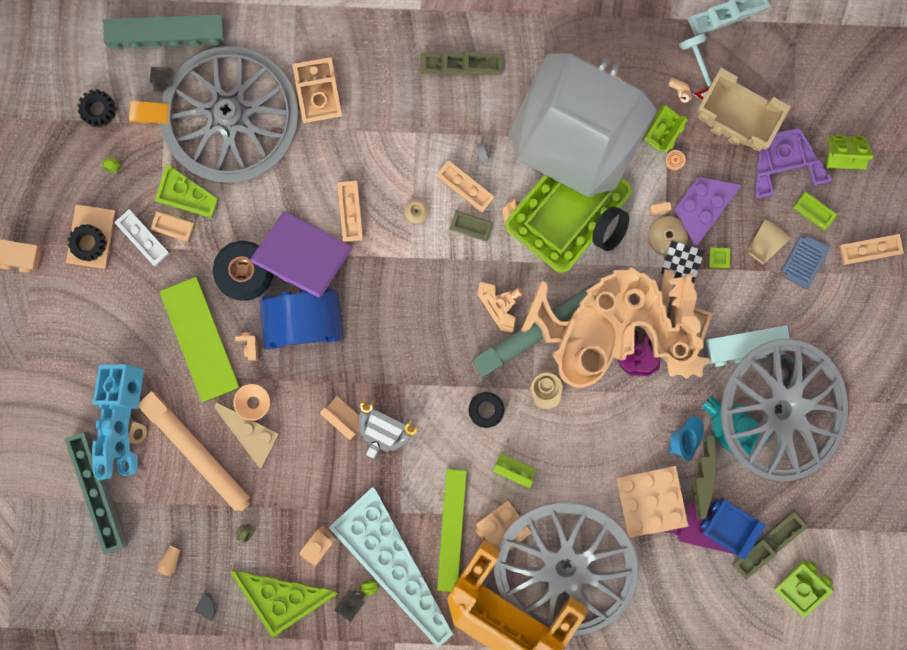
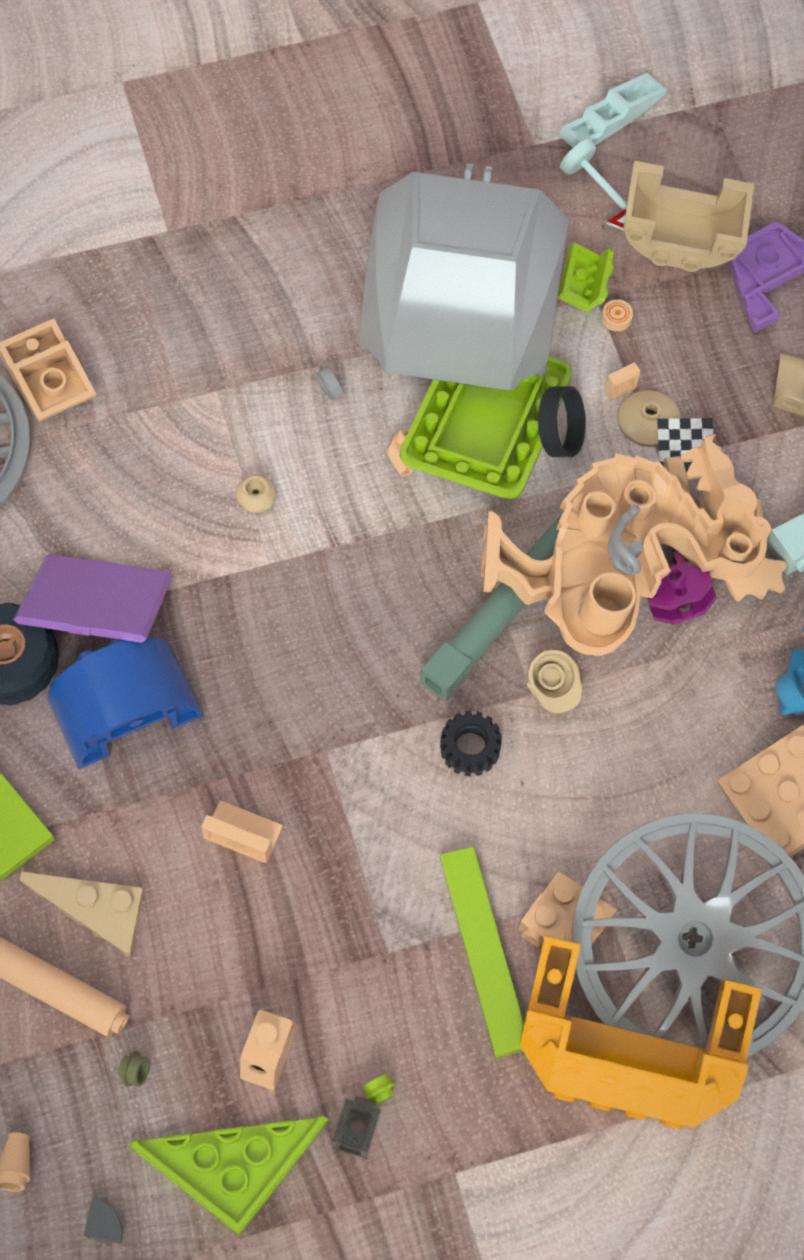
camera: 25 degrees left, 20 degrees down
(241, 402) = (78, 834): light nougat piece -> none
(251, 349) = (49, 757): light nougat bracket -> none
(350, 211) = (152, 522): light nougat plate -> none
(379, 547) = (373, 1017): light aqua wing -> none
(382, 430) = (314, 825): torso -> none
(461, 63) = (253, 280): olive slope -> none
(465, 186) = (319, 437): light nougat plate -> none
(471, 226) = (347, 490): olive tile -> none
(500, 305) = (433, 584): light nougat piece -> none
(514, 470) = (551, 822): lime bracket -> none
(606, 339) = (622, 557): none -> light grey piece
(682, 88) = (589, 223): light nougat arm -> none
(703, 206) = (684, 361): medium lavender wing -> none
(719, 258) = (737, 424): lime tile -> none

